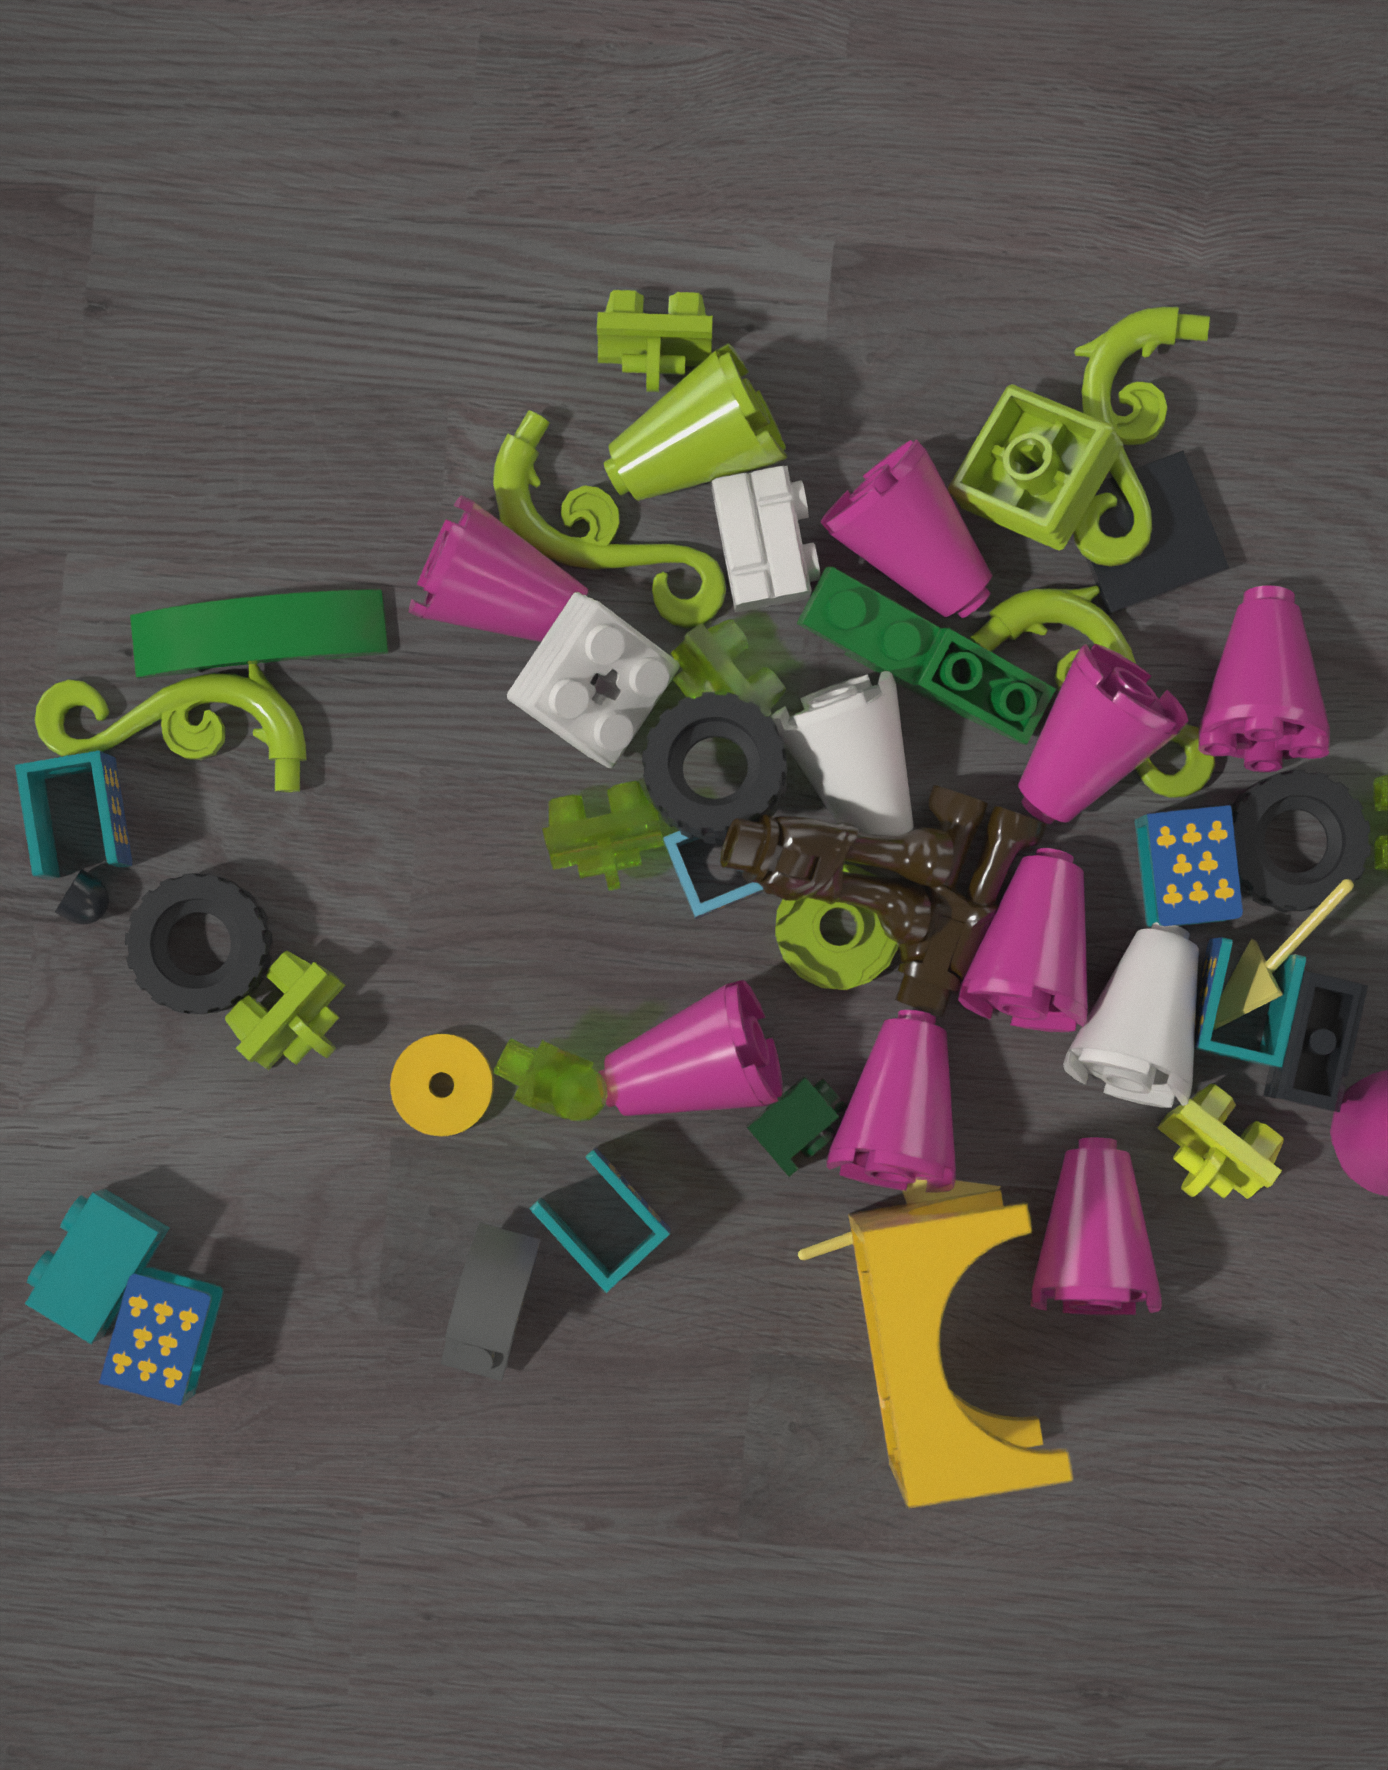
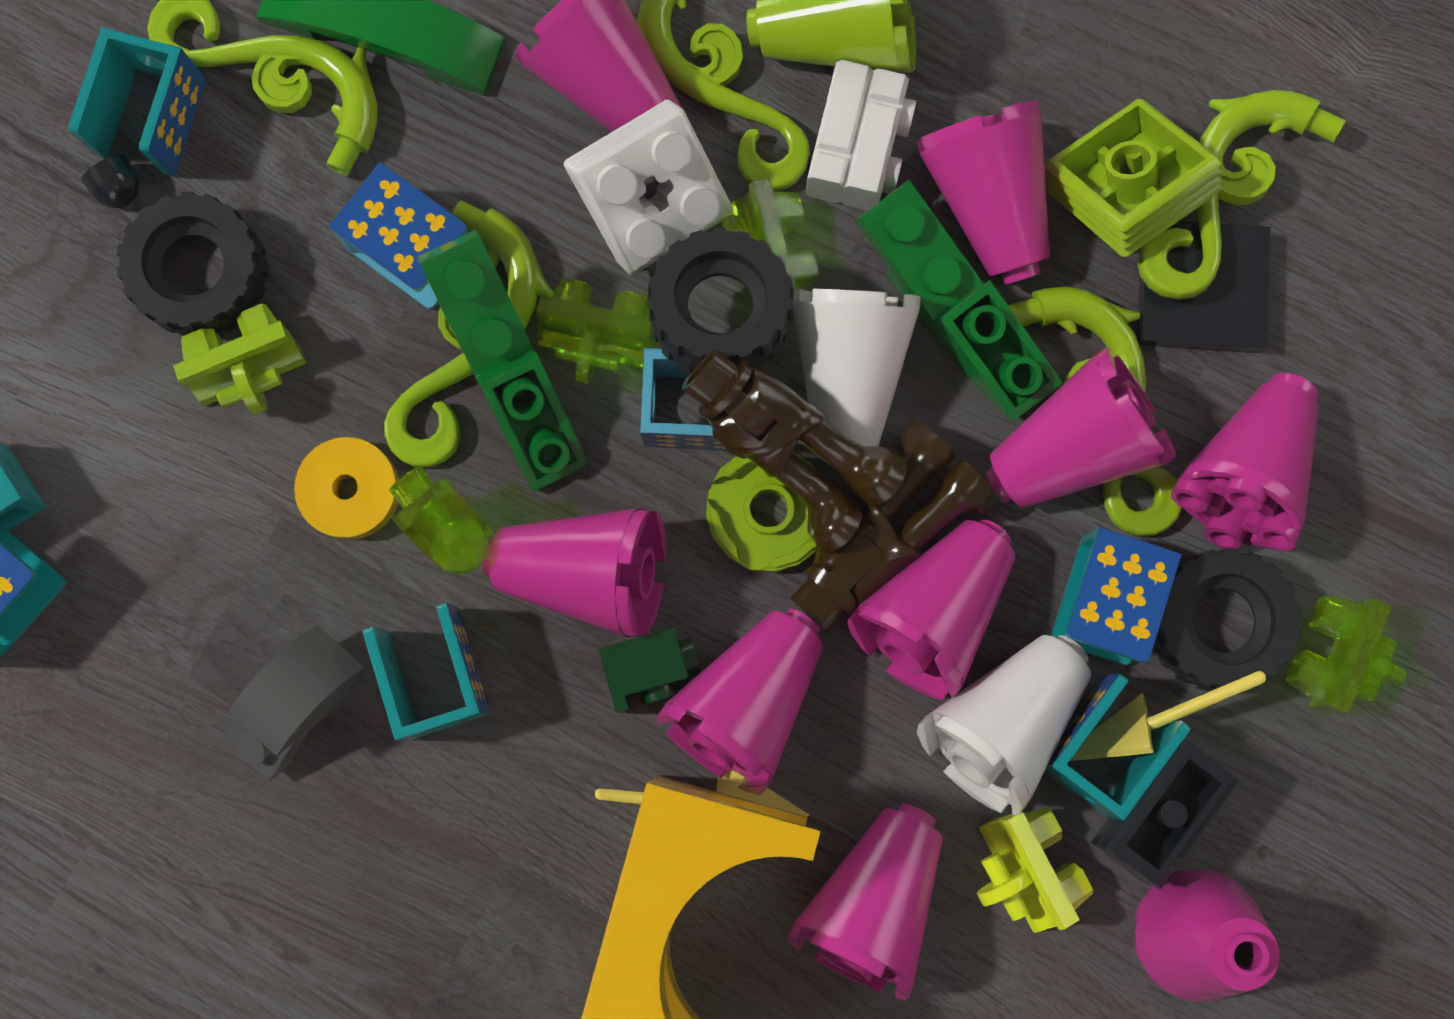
camera: 25 degrees right, 5 degrees down
(387, 829) = (393, 224): none -> blue piece
(515, 817) = (525, 282): none -> lime plant
(536, 905) = (503, 359): none -> green slope

